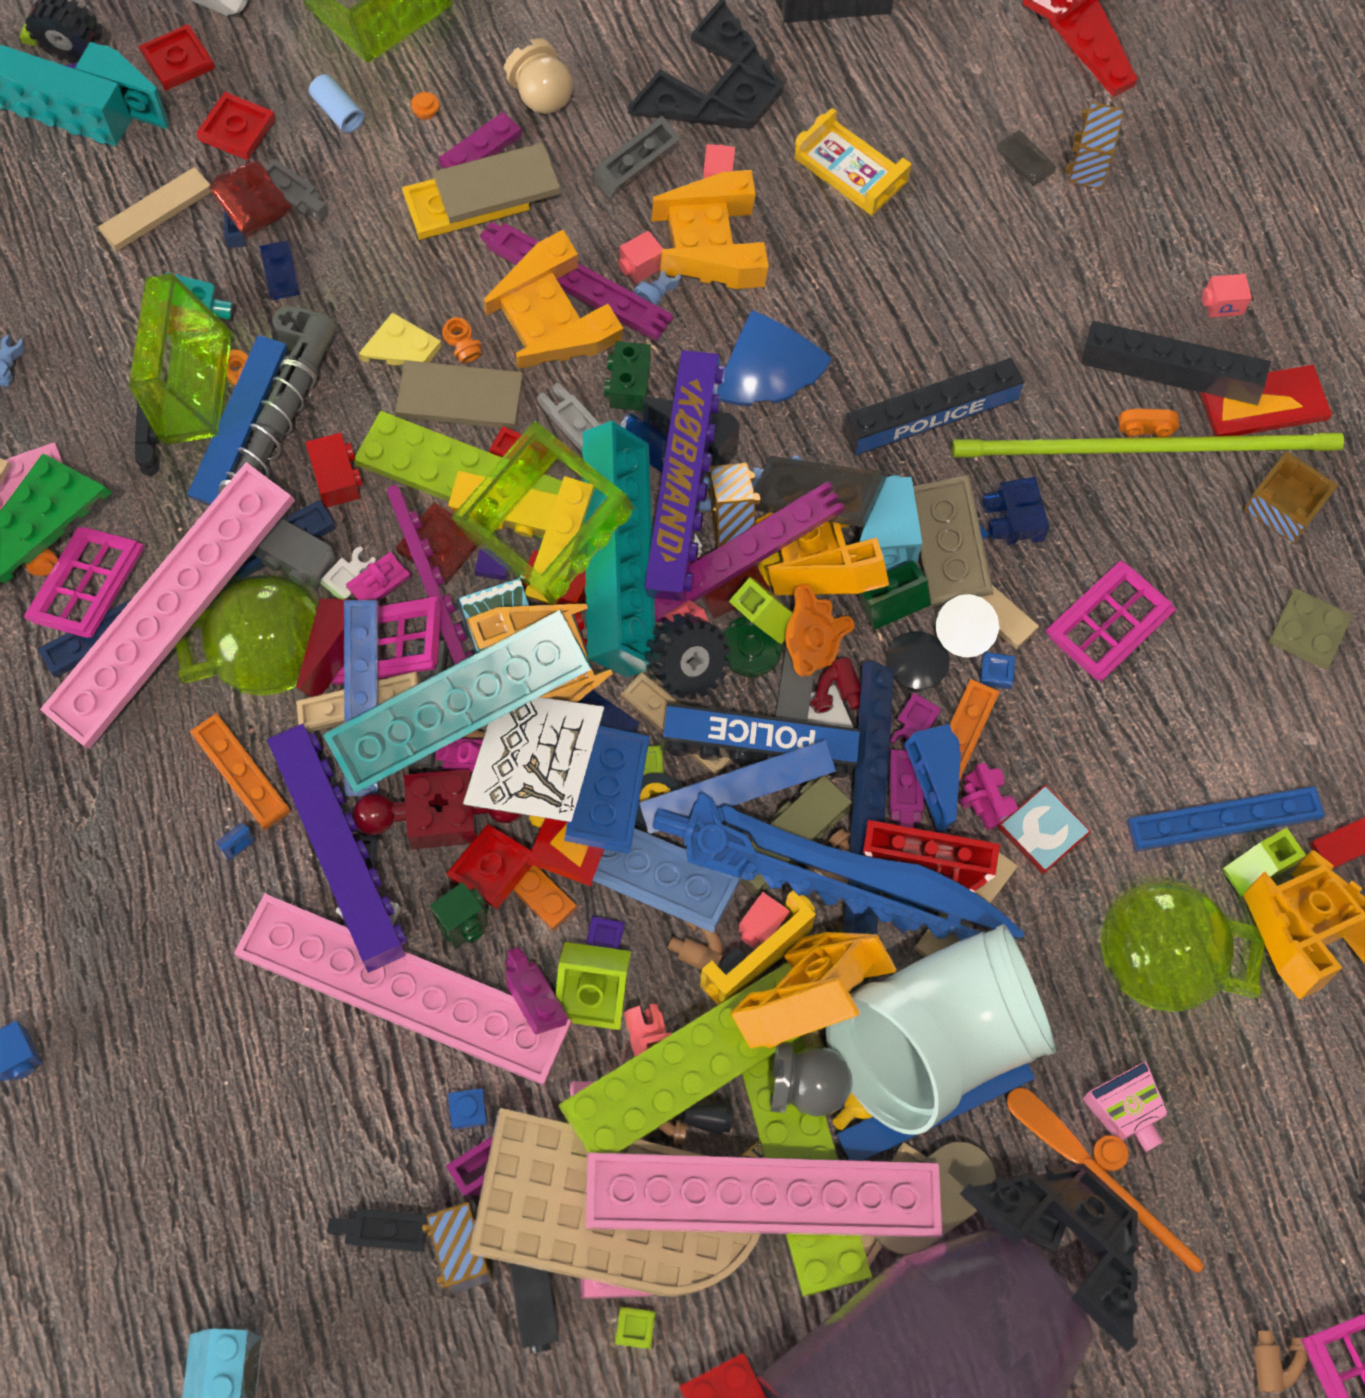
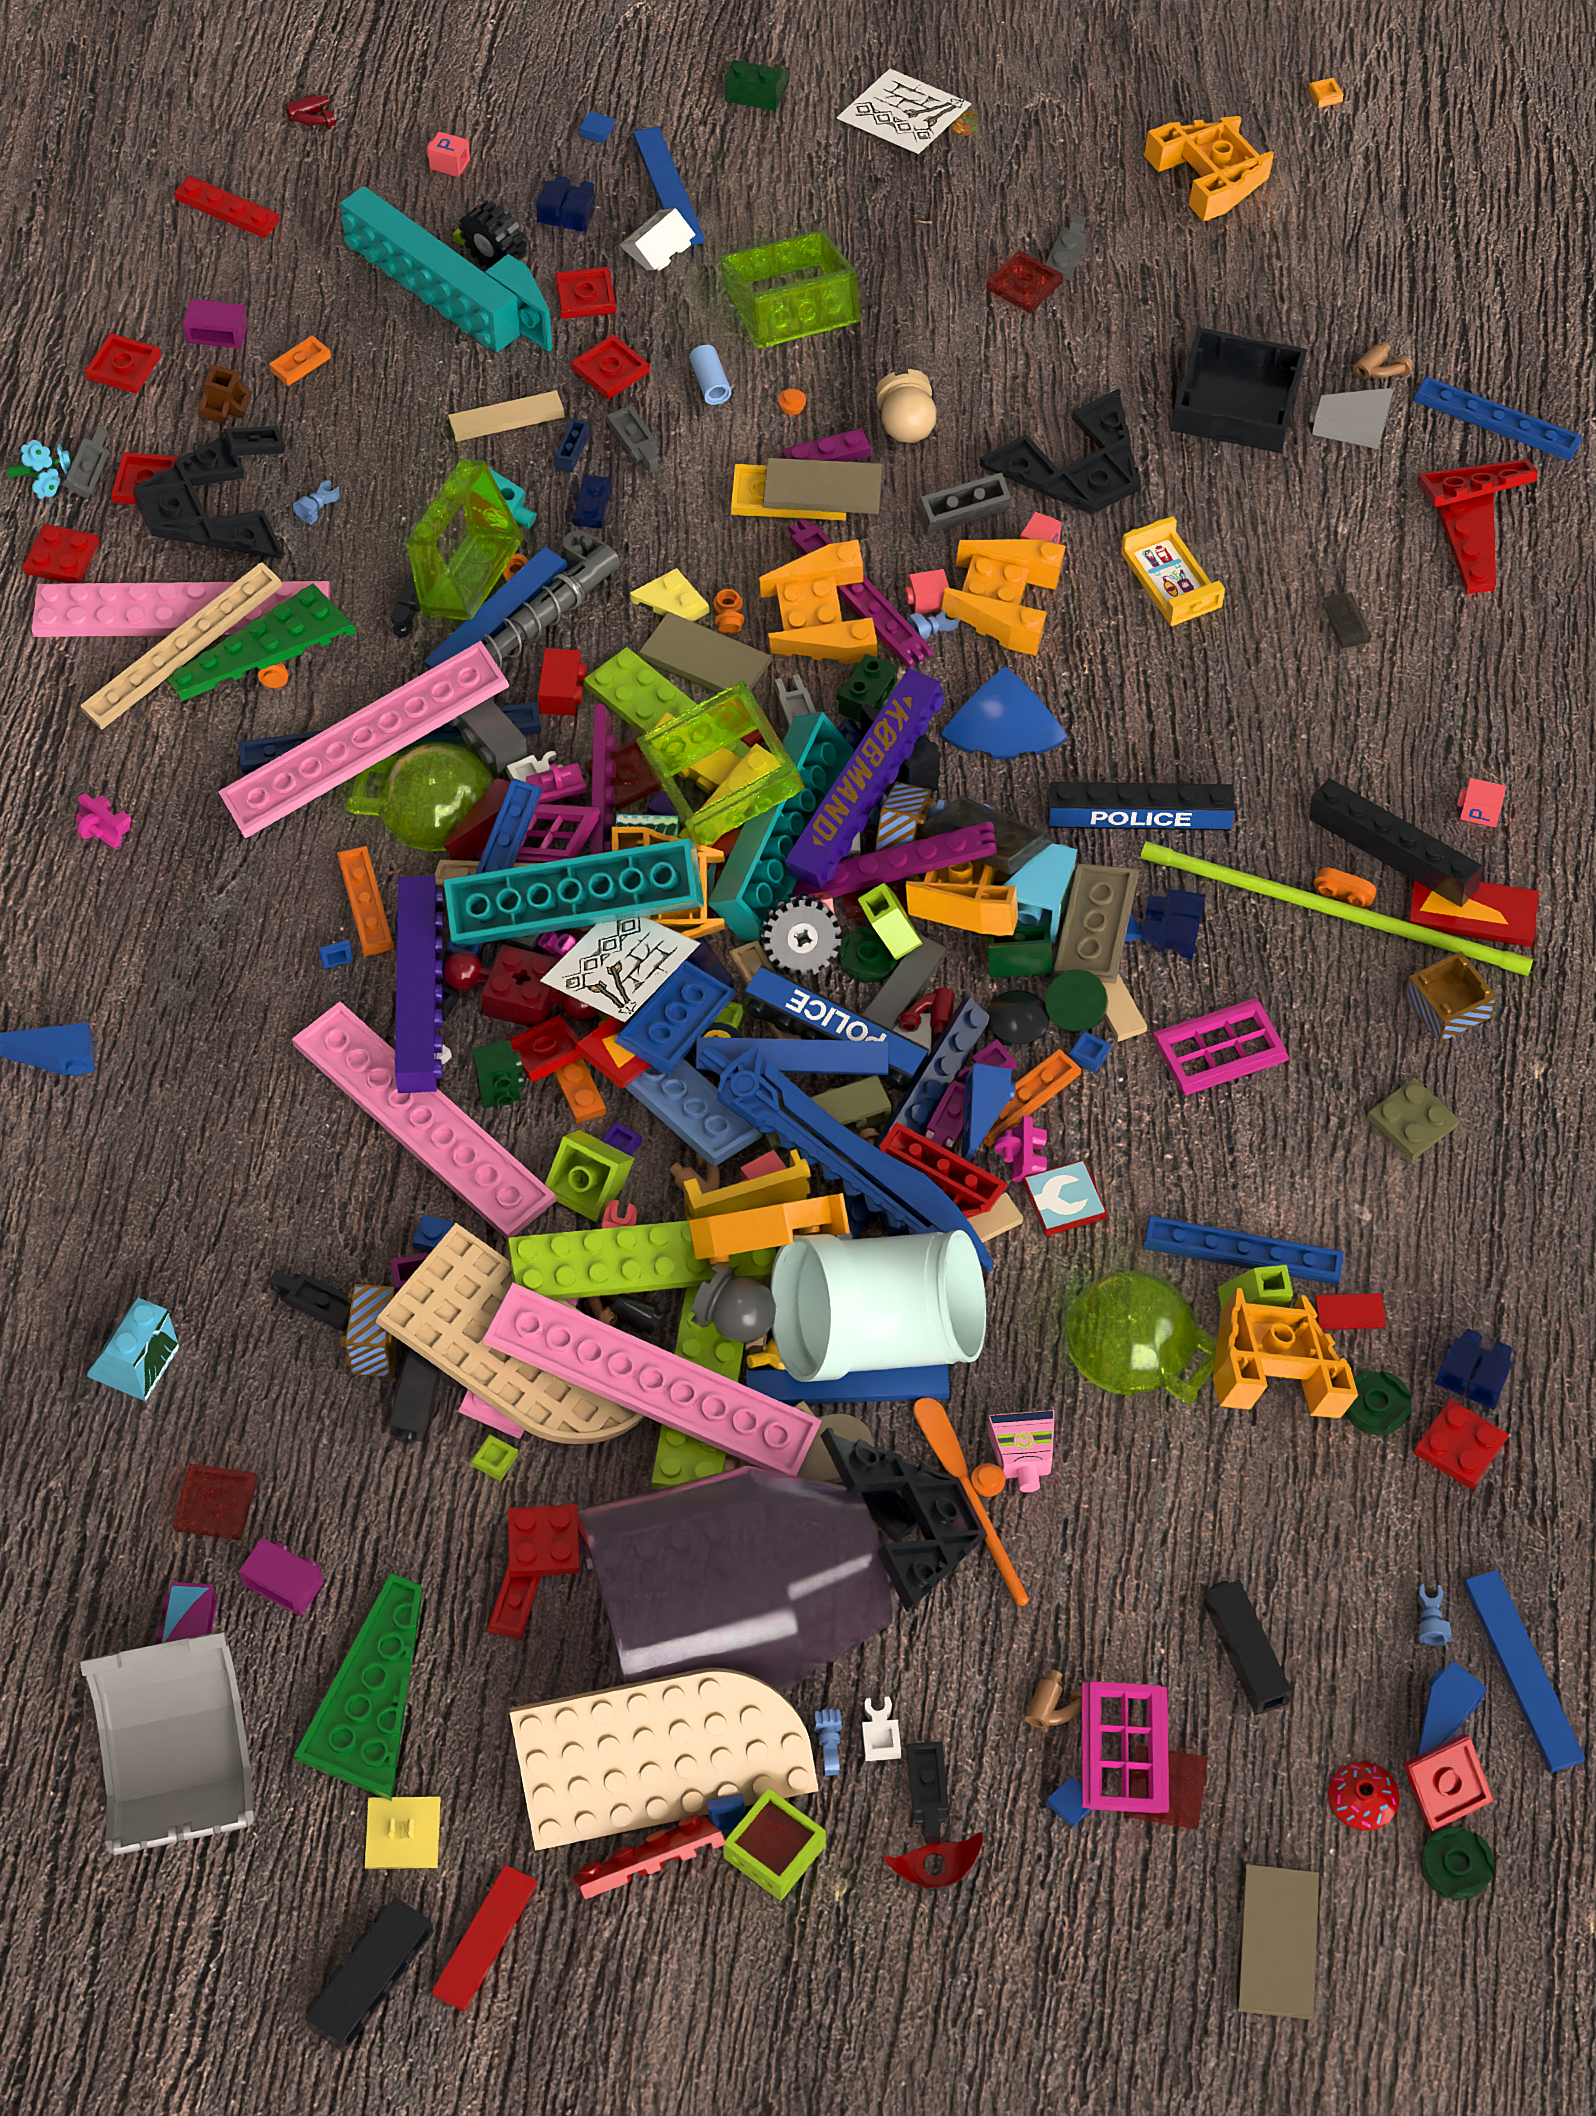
camera: 25 degrees right, 10 degrees down
(103, 600) = (252, 713): dark pink piece -> none
(249, 196) = (592, 428): clear red brick -> none
(533, 993) = (532, 1160): magenta hinge -> none
(813, 633) = (927, 956): orange tile -> none
(1095, 145) = (1415, 627): container -> none

